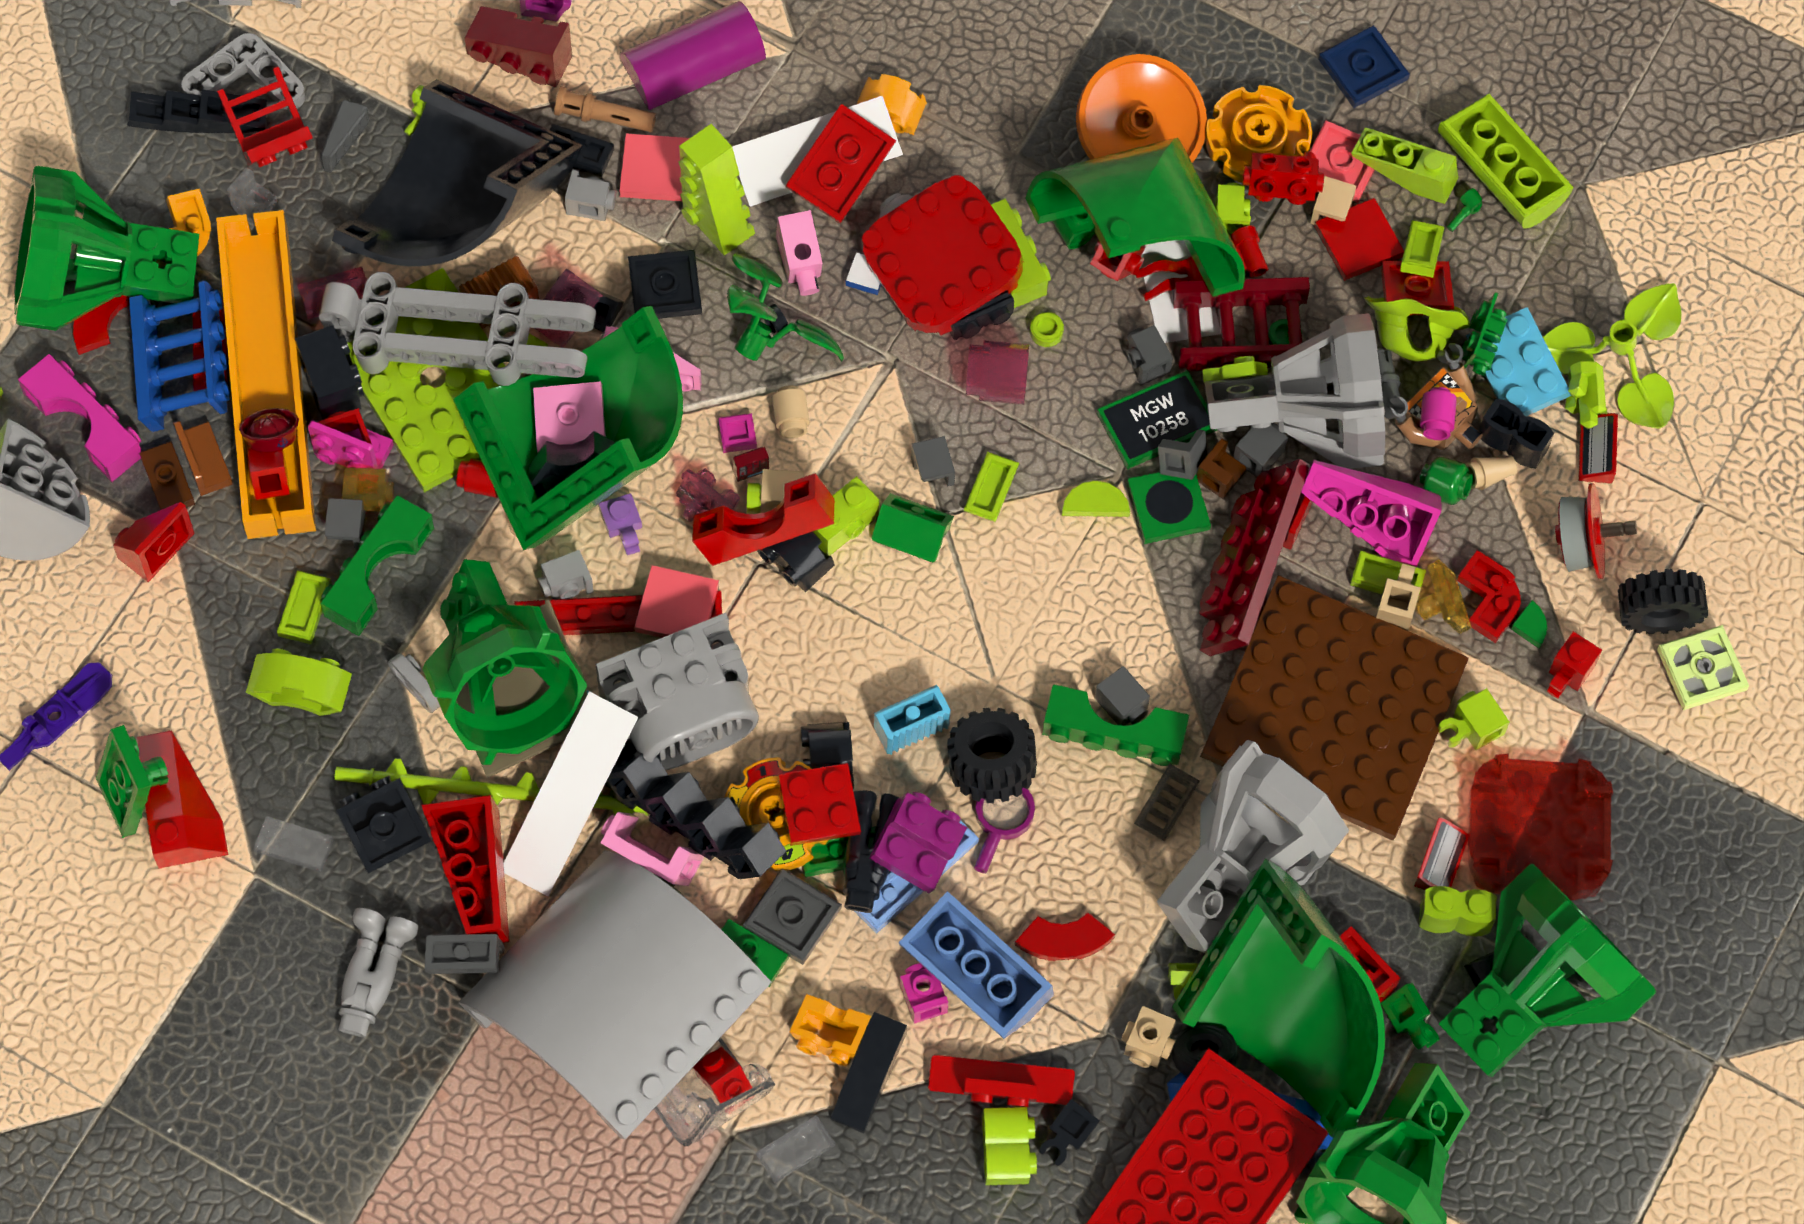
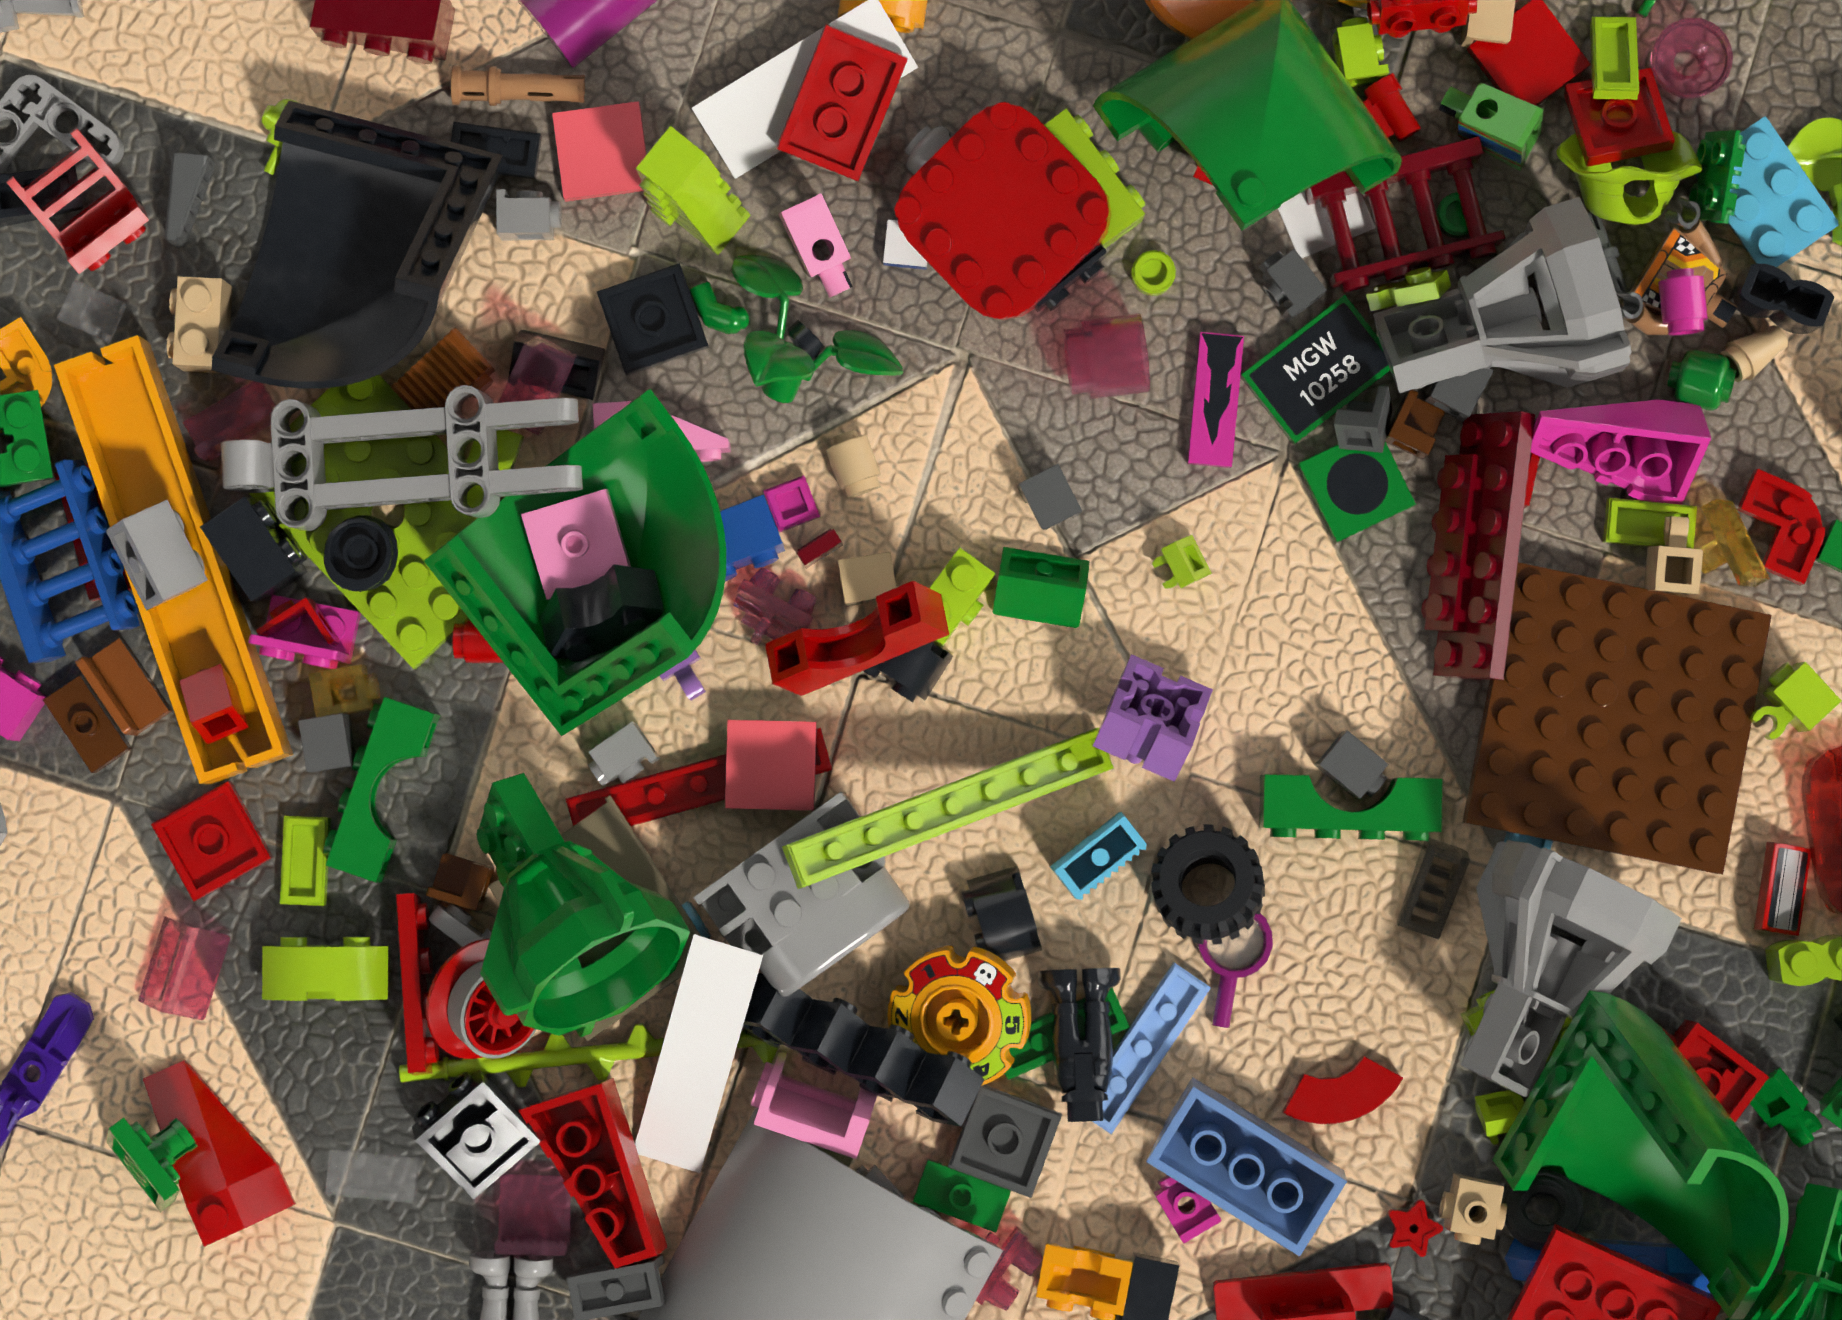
camera: 10 degrees left, 20 degrees up
(154, 540) = (90, 824): red slope -> none
(192, 662) = (183, 969): none -> clear pink panel
(237, 579) = (212, 840): none -> red tile
(256, 357) = (157, 554): none -> light grey brick
(270, 429) = (199, 648): dark red hat -> none
(330, 208) = (201, 320): none -> tan brick
(364, 717) = (415, 964): none -> red plate
(406, 394) = (361, 553): none -> black piece
(410, 725) = (464, 1012): none -> red piece
(412, 895) = (533, 1215): none -> clear pink piece
(418, 642) = (461, 882): none -> reddish brown panel
(696, 445) = (750, 536): none -> blue brick
(711, 291) = (718, 315): none -> green arm
(754, 498) = (834, 596): lime tile -> none
(757, 1019) = (1016, 1252): none -> clear pink hips
(804, 650) = (945, 808): none -> lime tile
(819, 804) = (1011, 1008): red plate -> none
(918, 841) = (1141, 1022): magenta plate -> none
(974, 626) = (1152, 718): none -> medium lavender brick
(991, 486) = (1128, 510): lime tile -> none
(1026, 529) = (1185, 562): none -> lime tile
(1074, 425) = (1215, 400): none -> tile
(1095, 1058) = (1404, 1219): none -> red plate
(1096, 500) = (1264, 498): lime tile -> none
(1330, 273) = (1511, 124): none -> bright green torso
(1481, 247) = (1702, 40): none -> clear pink piece

